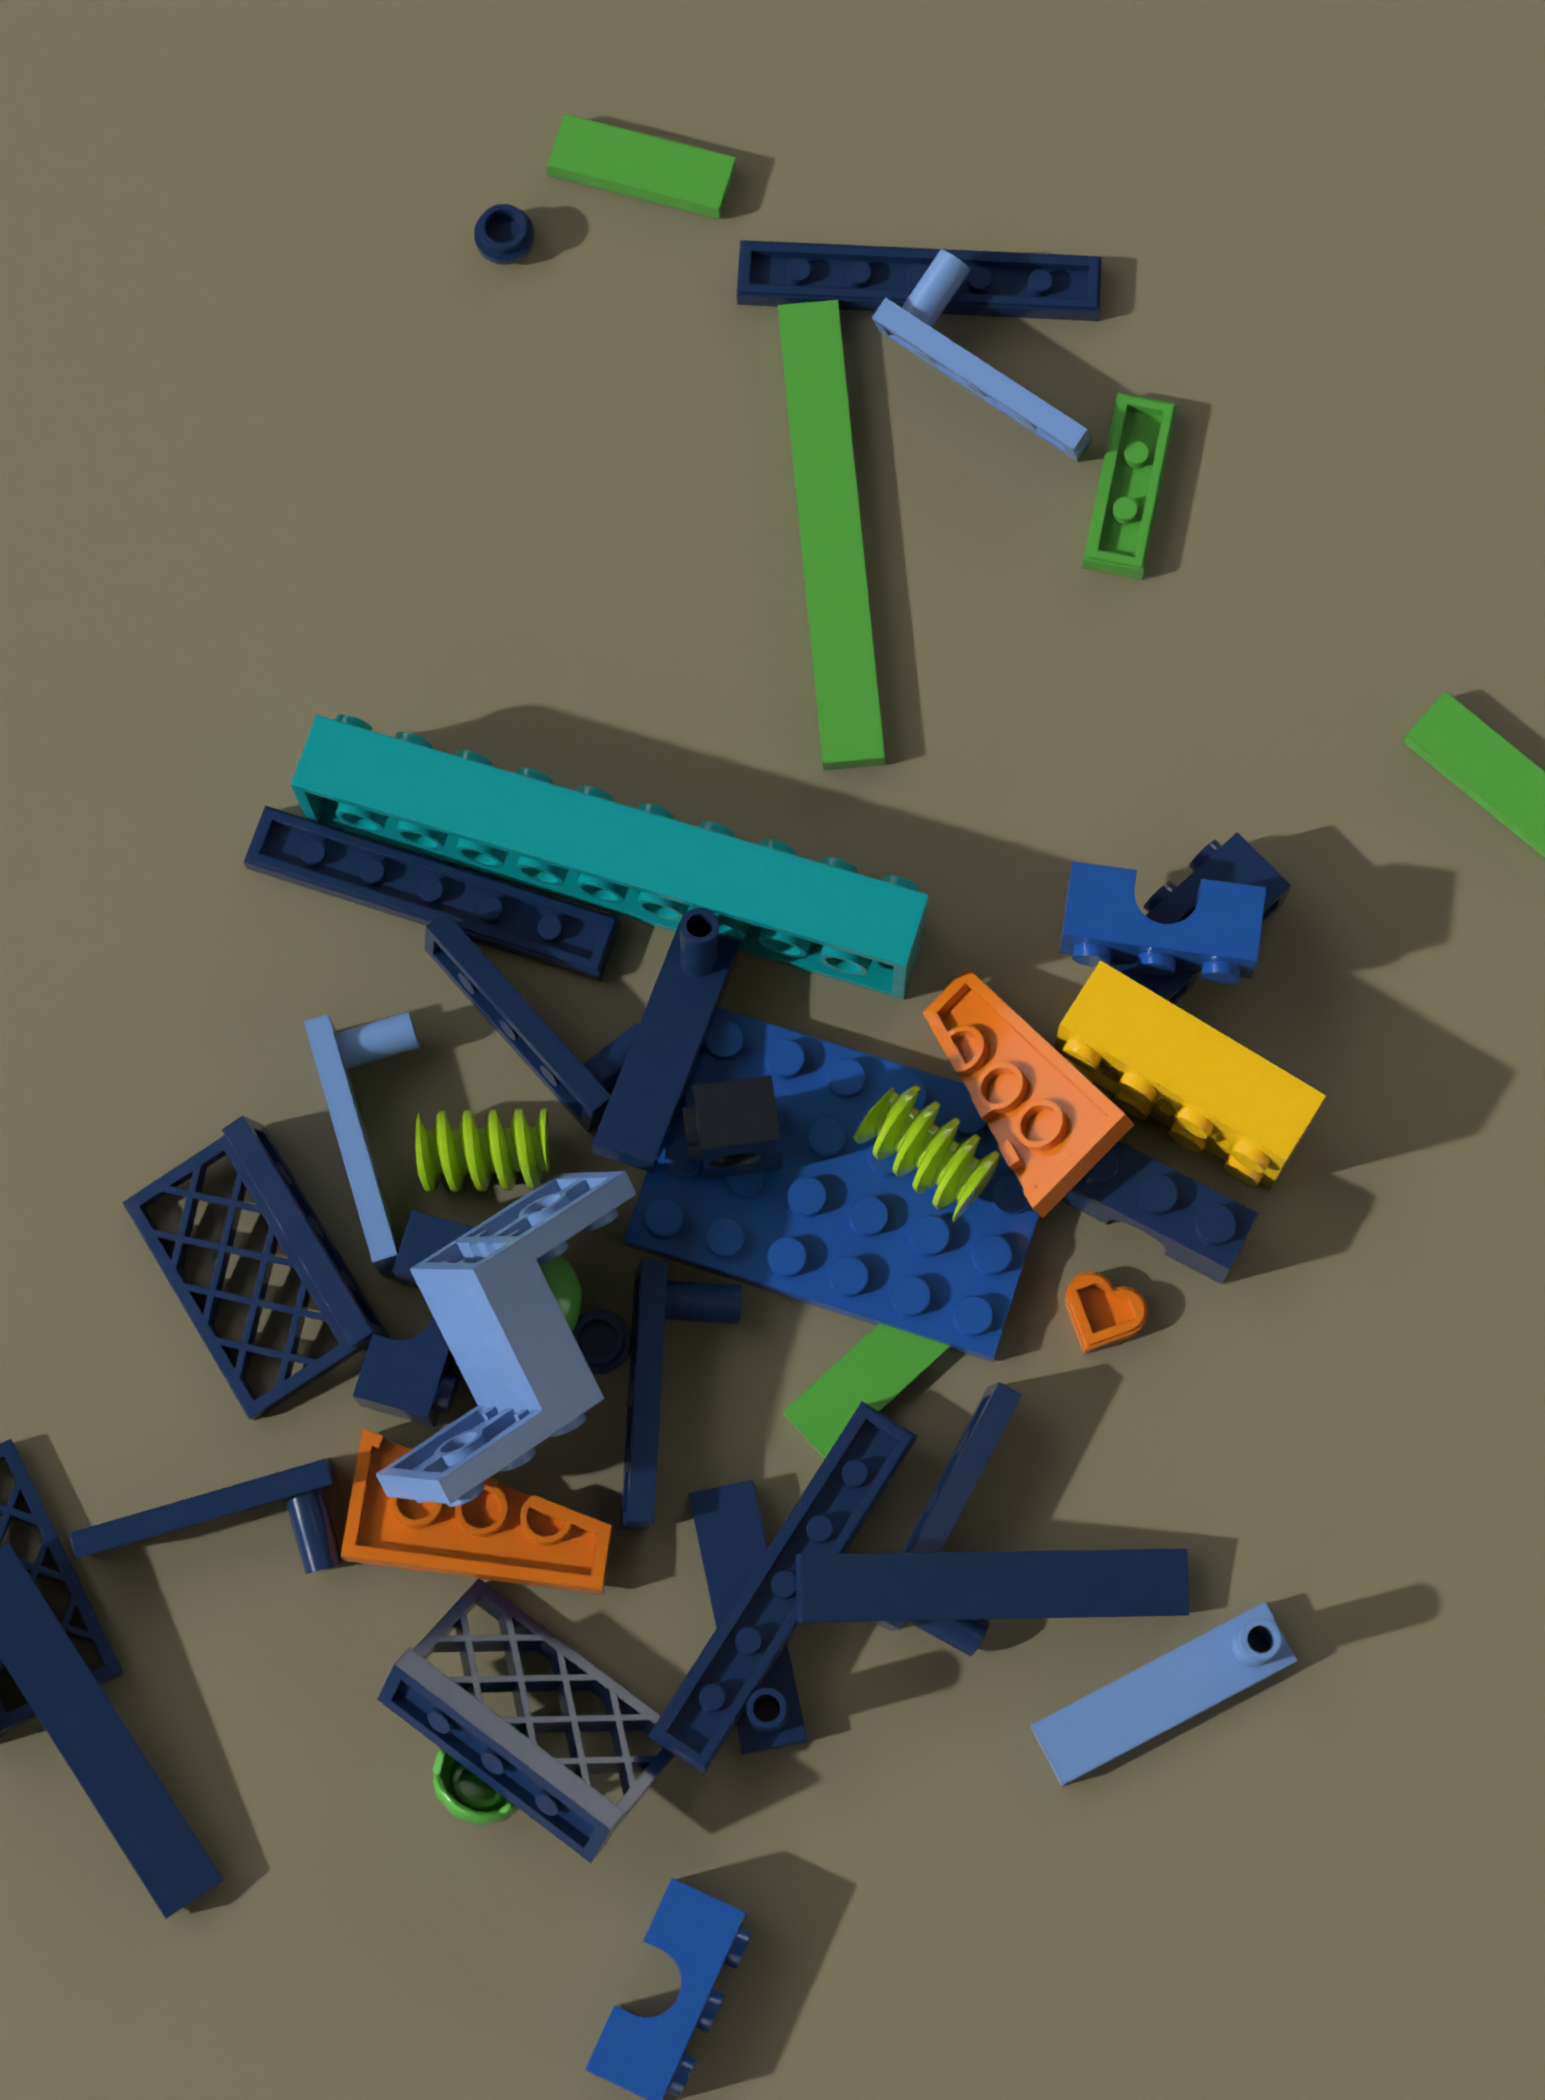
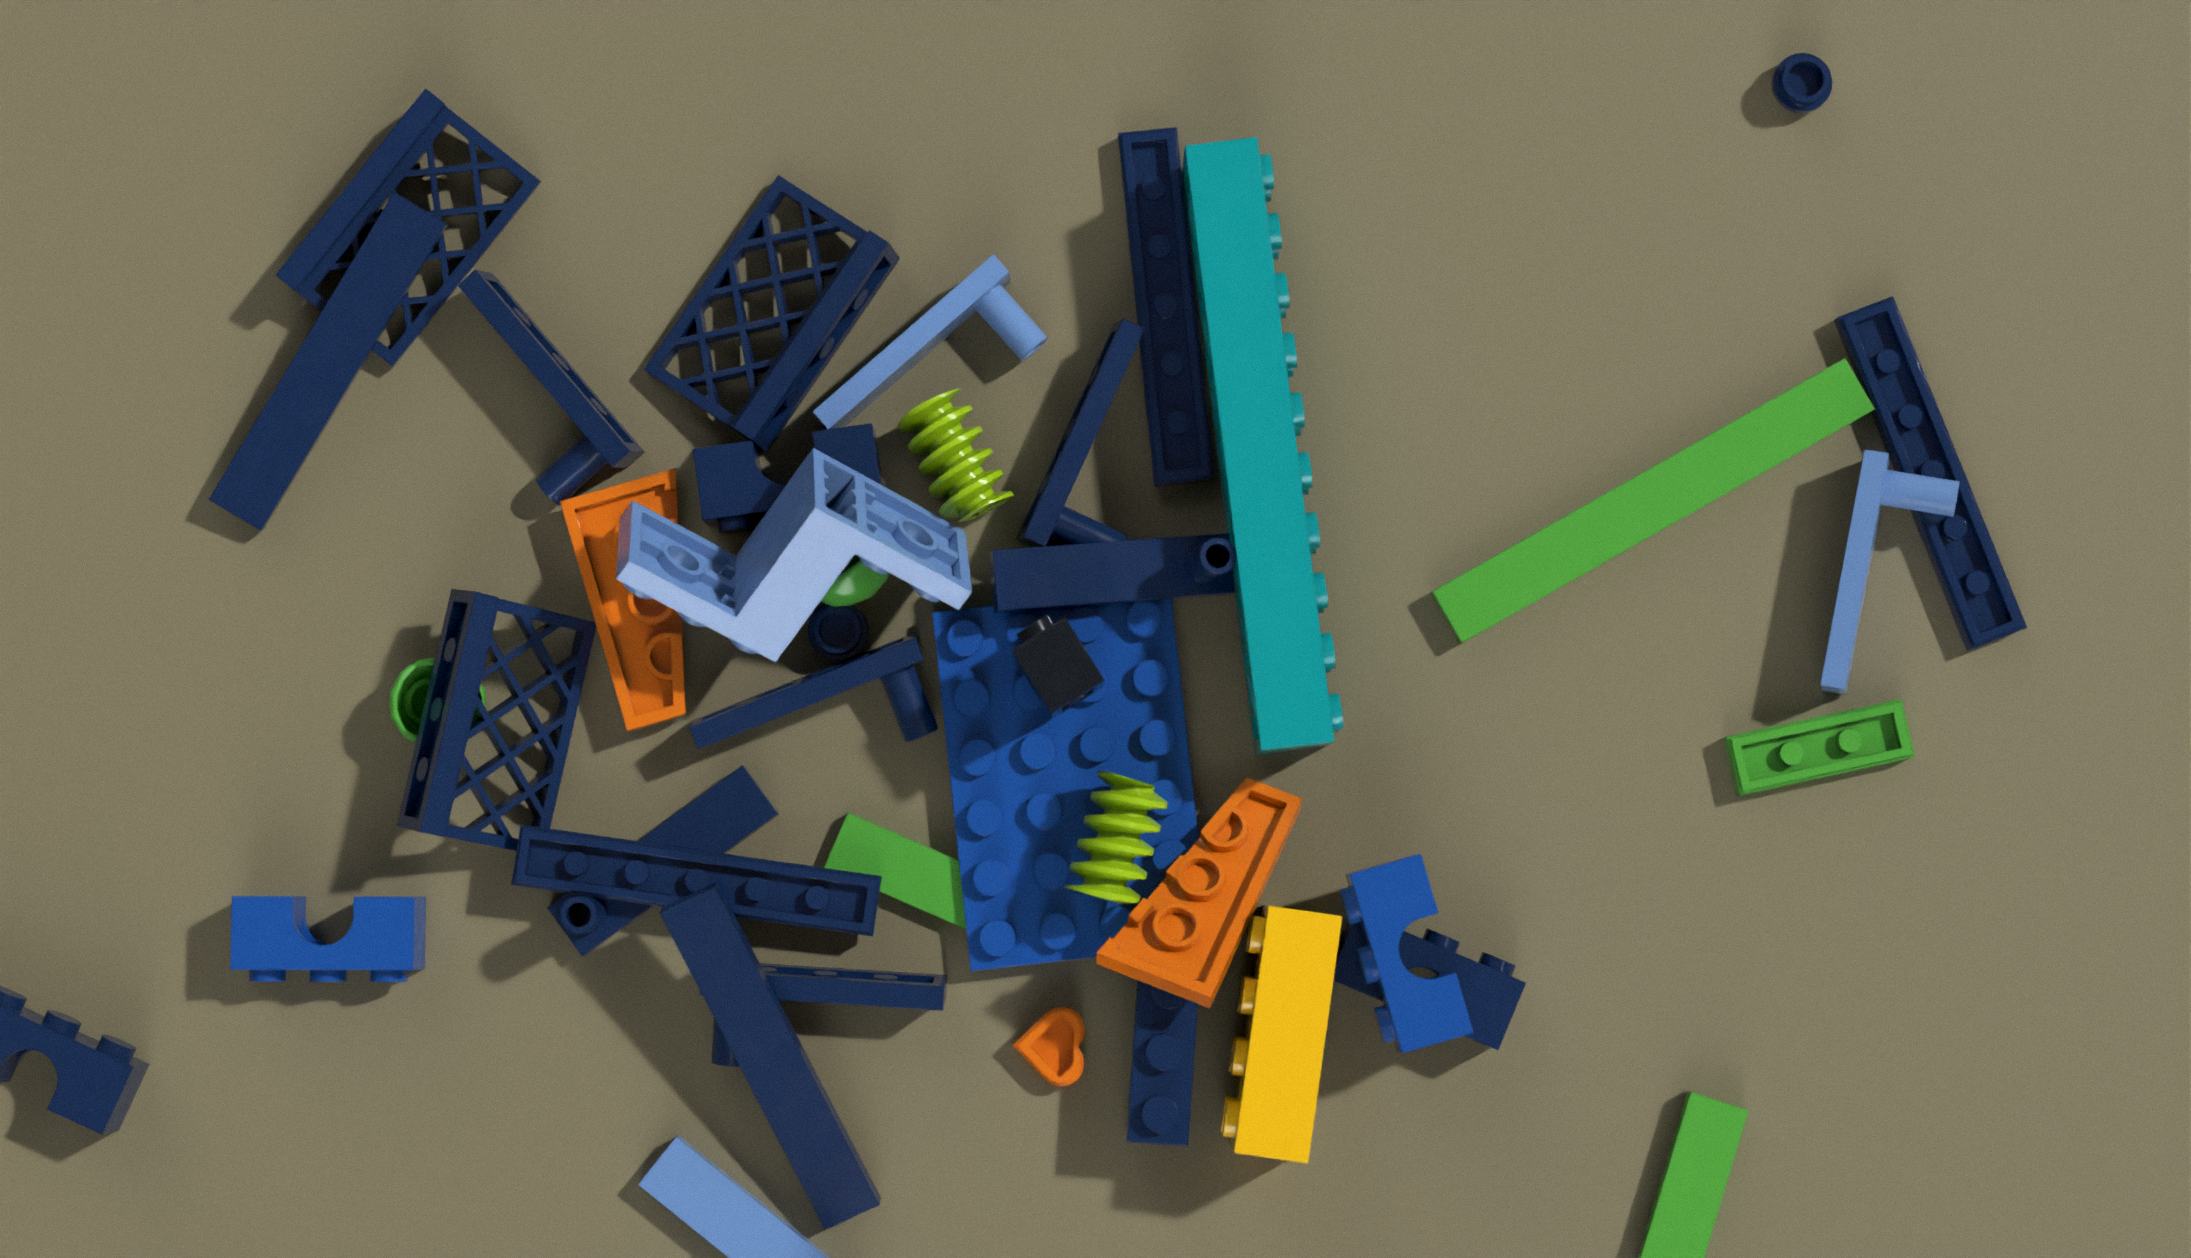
camera: 60 degrees right, 10 degrees up
(641, 166) = (1925, 174): bright green tile -> none

